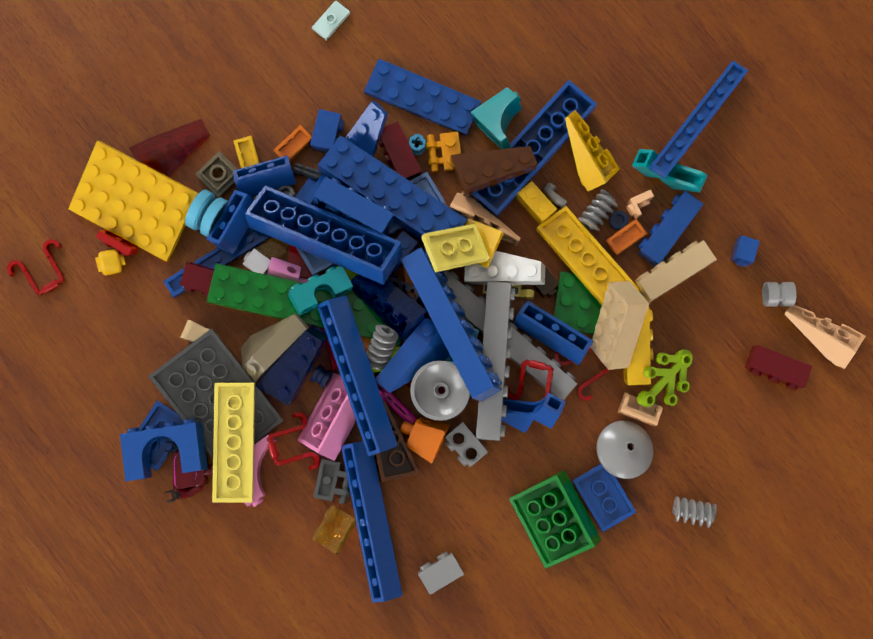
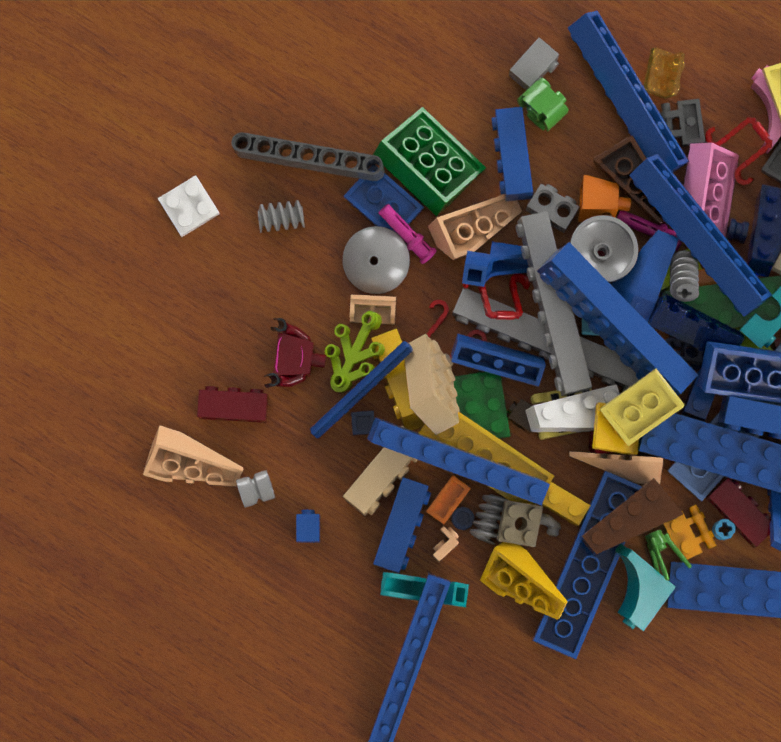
camera: 165 degrees right, 0 degrees up
(446, 533) = (543, 105): none -> bright green brick
(470, 147) = (657, 542): none -> bright green plant
(483, 501) = (513, 152): none -> blue brick
(539, 449) = (472, 225): none -> light nougat wedge
(576, 188) = (529, 529): none -> dark tan piece
(590, 454) = (414, 241): none -> dark pink pin
(617, 256) = (458, 461): none -> blue brick
(666, 559) = (299, 149): none -> dark grey beam
(672, 343) = (361, 389): none -> blue axle
(675, 319) = (362, 422): none -> dark blue plate
(717, 390) = (293, 356): none -> dark red torso
(767, 547) = (188, 206): none -> white plate

